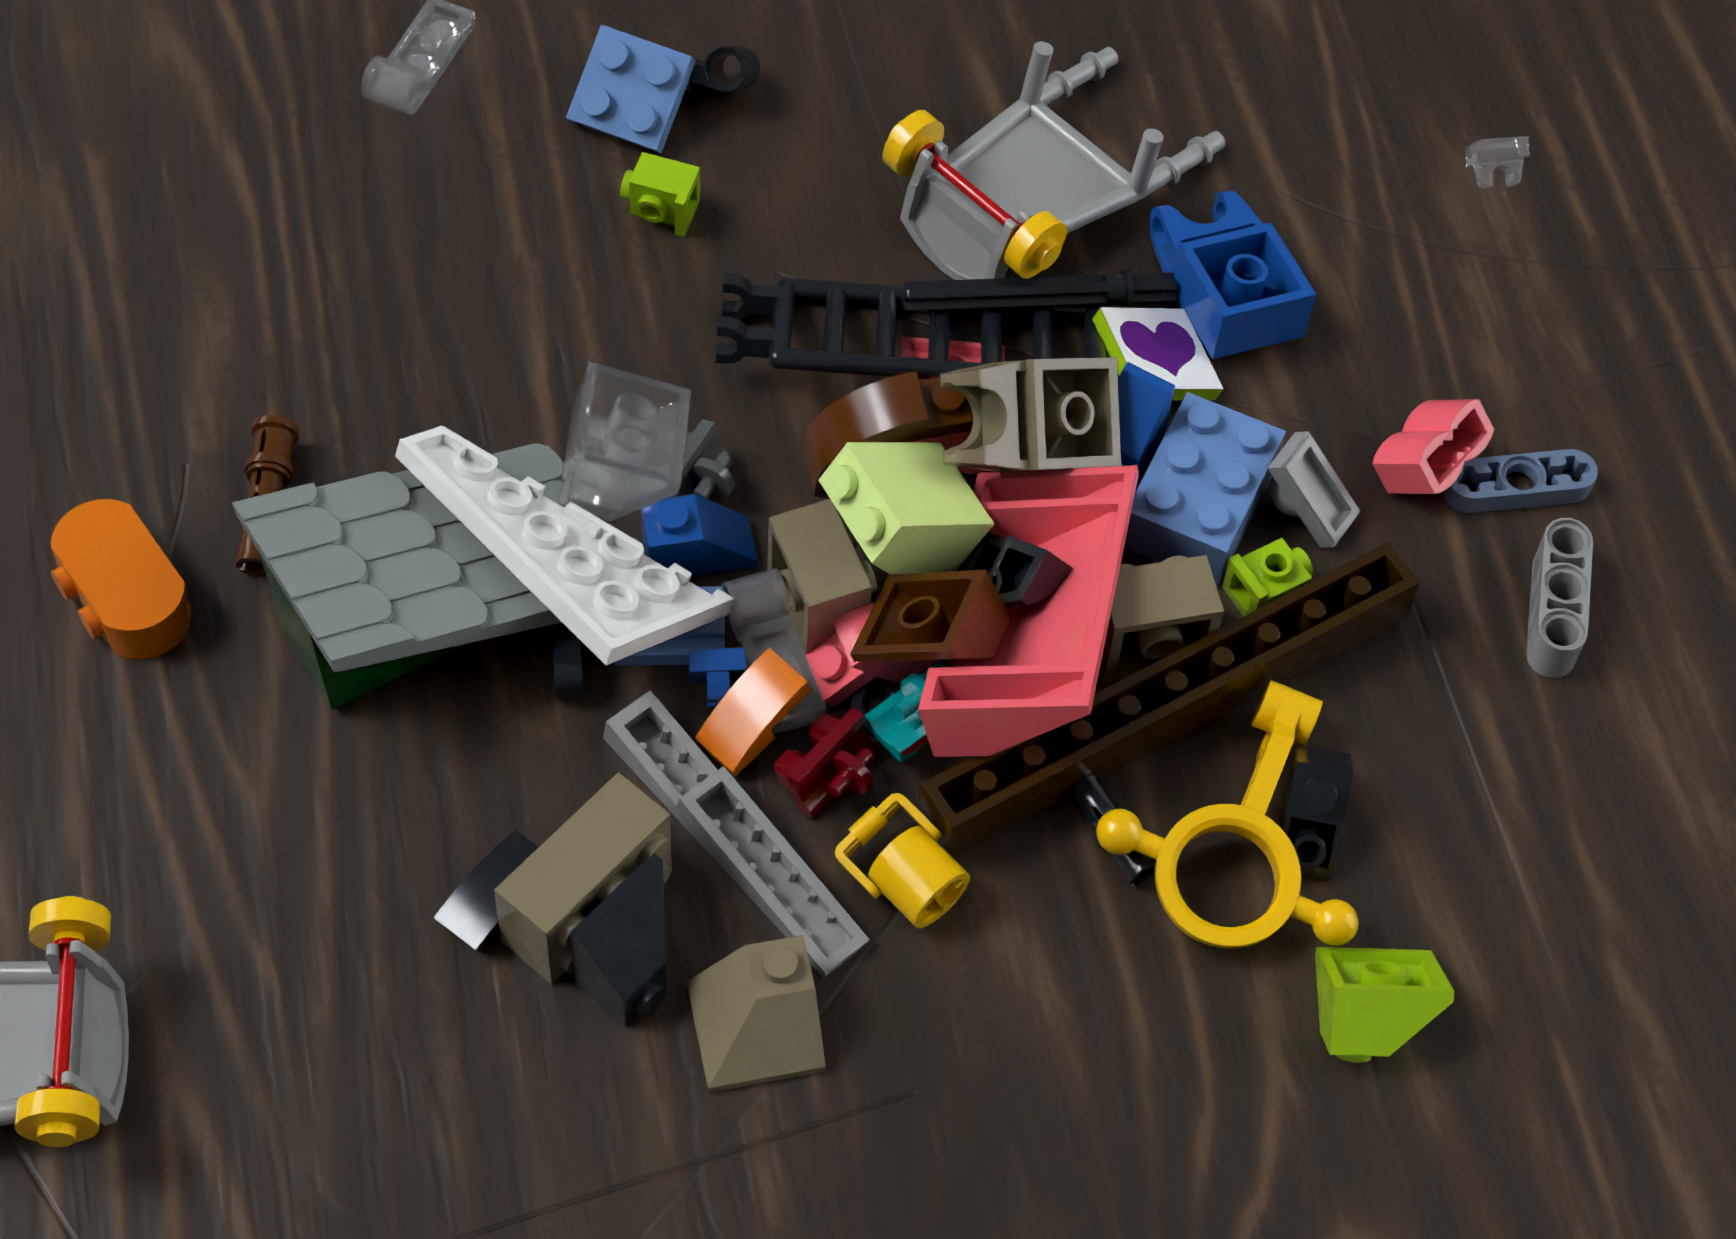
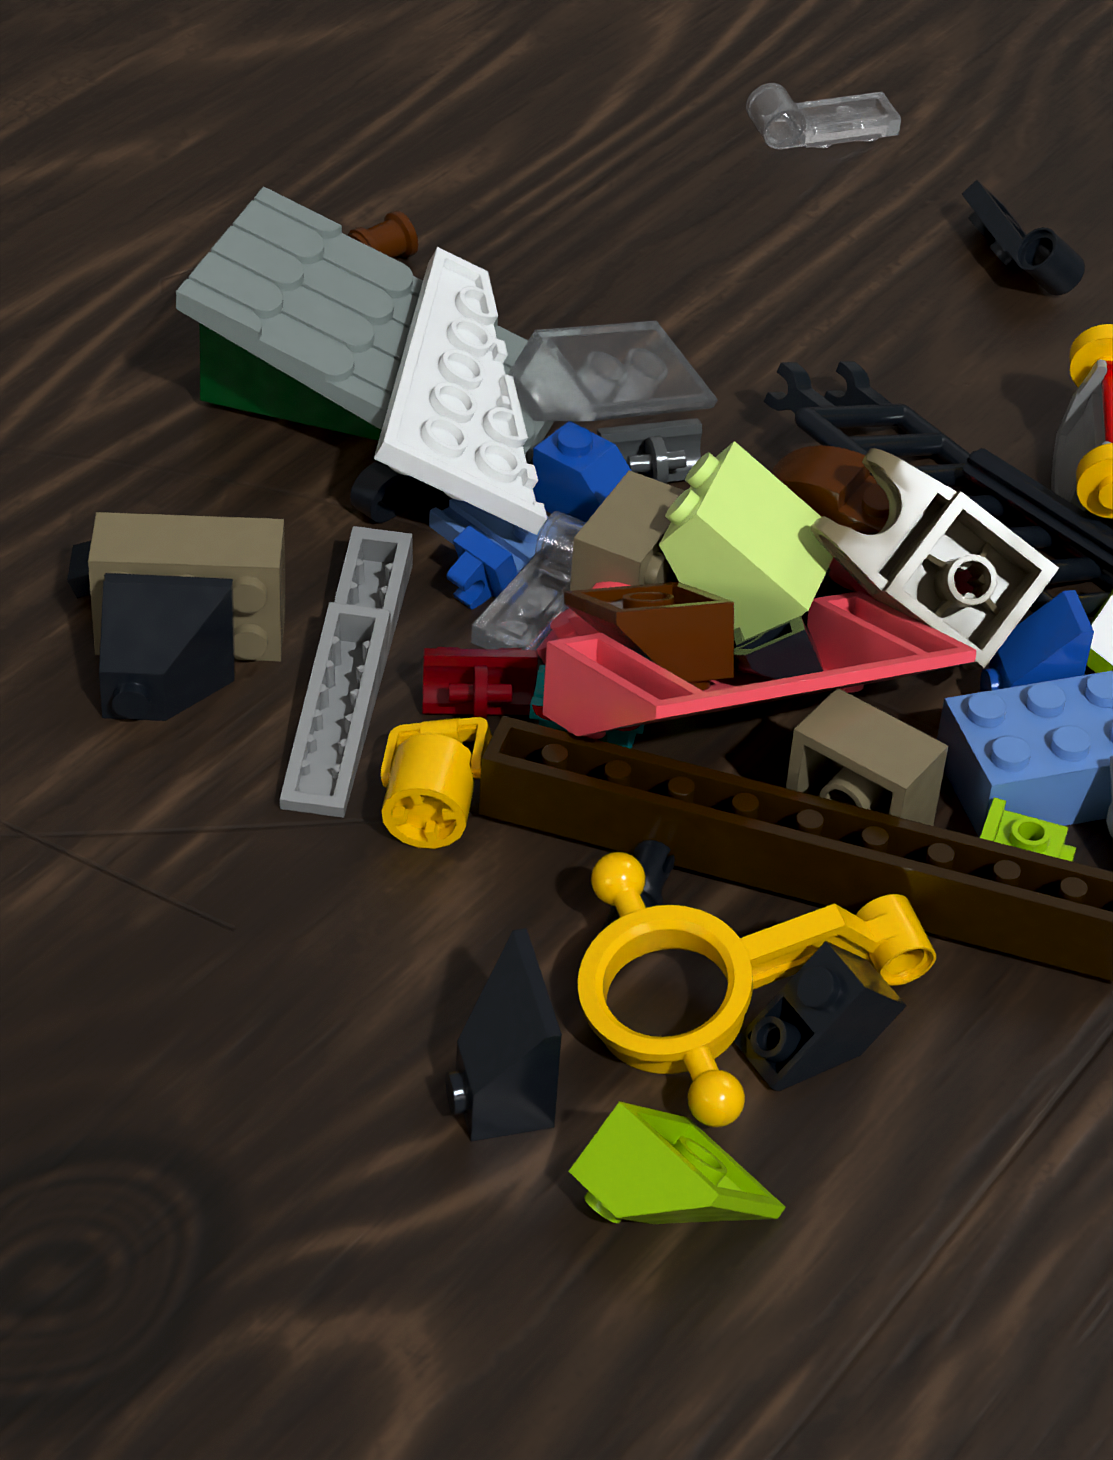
camera: 50 degrees right, 15 degrees down
(120, 579) = (173, 230): orange brick -> none
(631, 89) = (951, 224): medium blue plate -> none
(662, 191) = (887, 297): lime brick -> none
(750, 709) = (445, 607): orange slope -> none
(757, 1016) = (195, 780): dark tan slope -> none
(1204, 1006) = (508, 1050): none -> black slope

